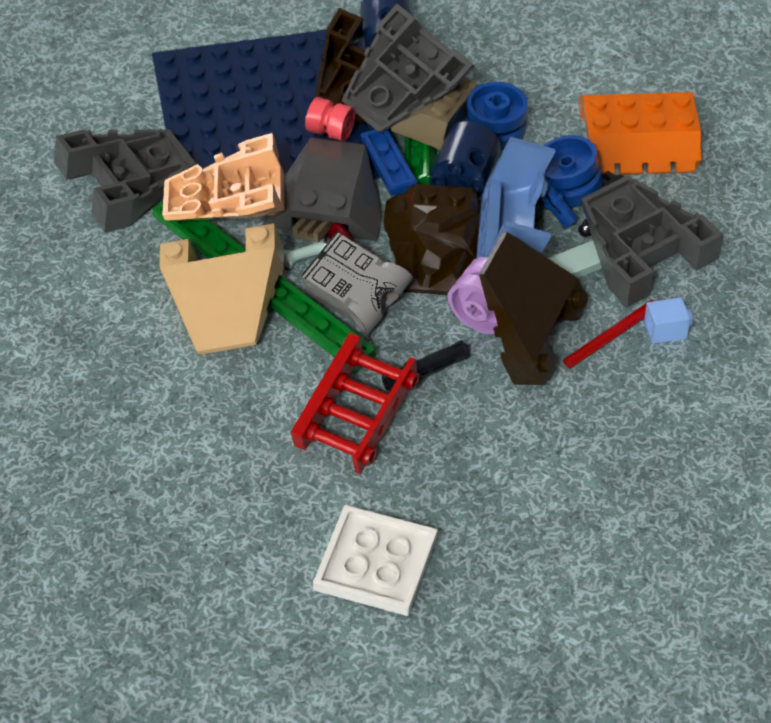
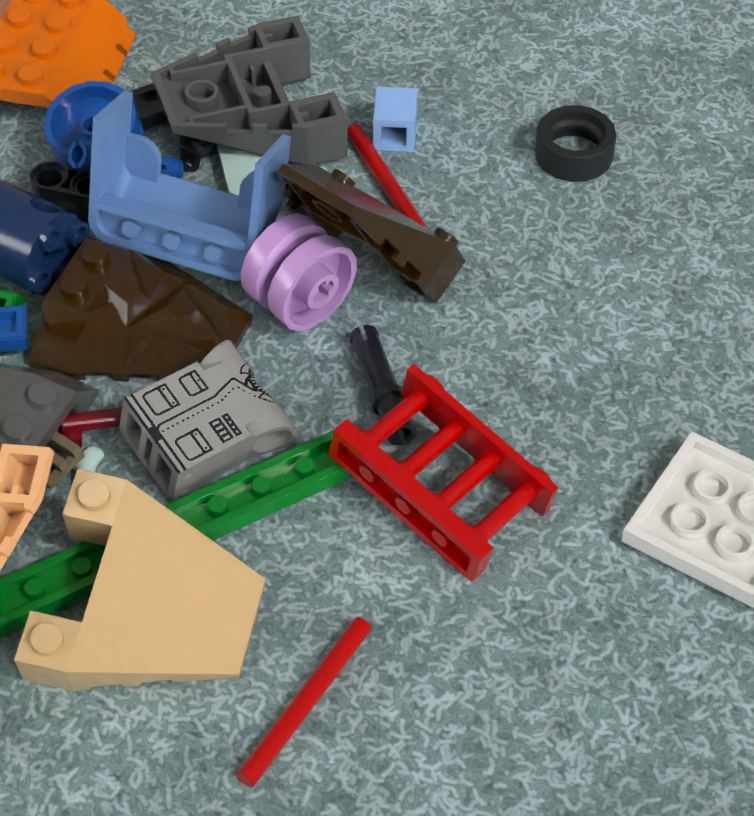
camera: 75 degrees left, 0 degrees up
(188, 384) = (303, 702): none -> red bar
(692, 407) = (571, 164): none -> black tyre

